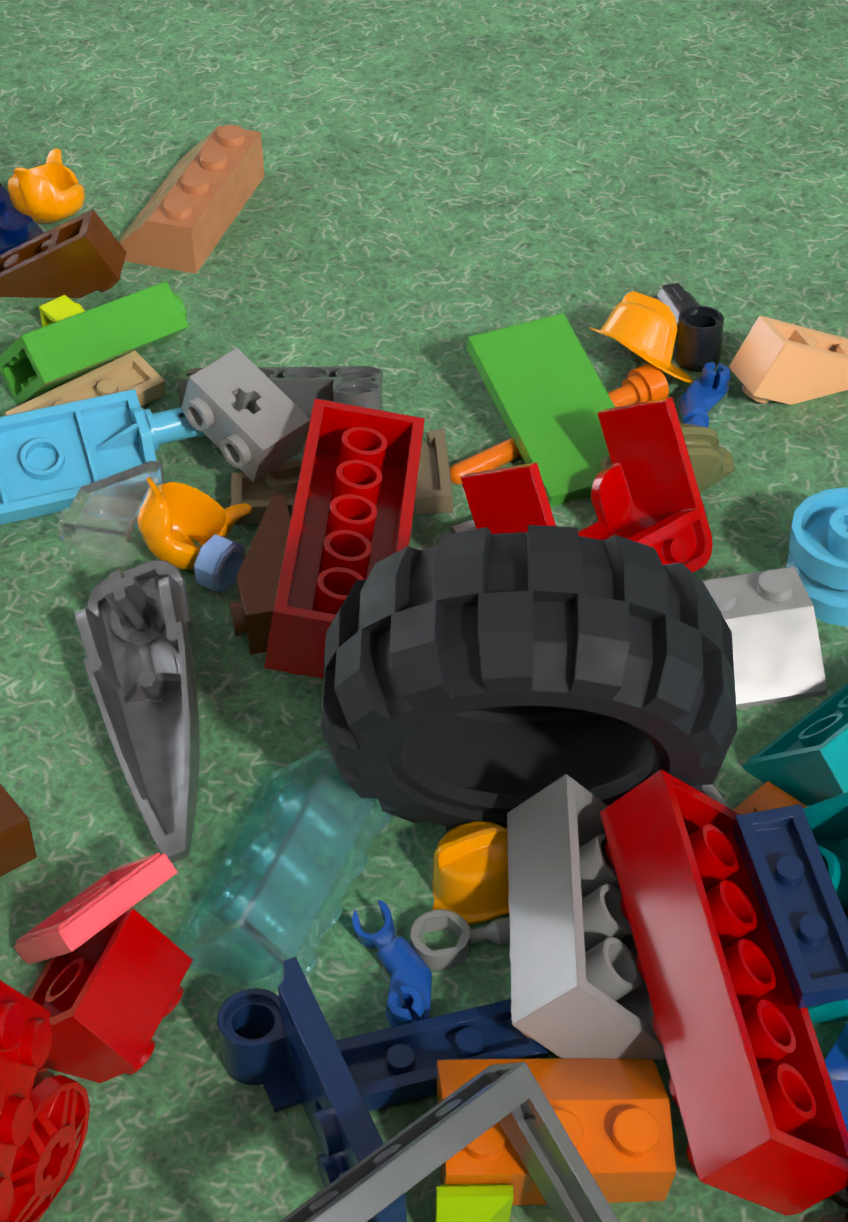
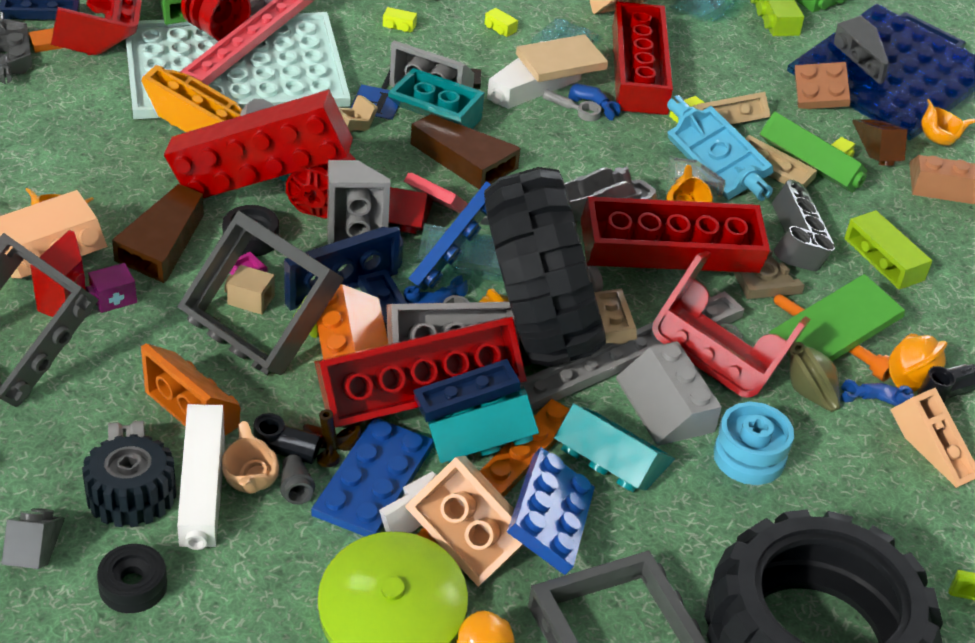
camera: 75 degrees right, 0 degrees up
(152, 1056) = (356, 199): none -> light grey slope
(244, 415) = (767, 189): light grey brick -> none
(337, 859) = (447, 248): none -> blue plate
(359, 319) = (888, 249): none -> lime brick

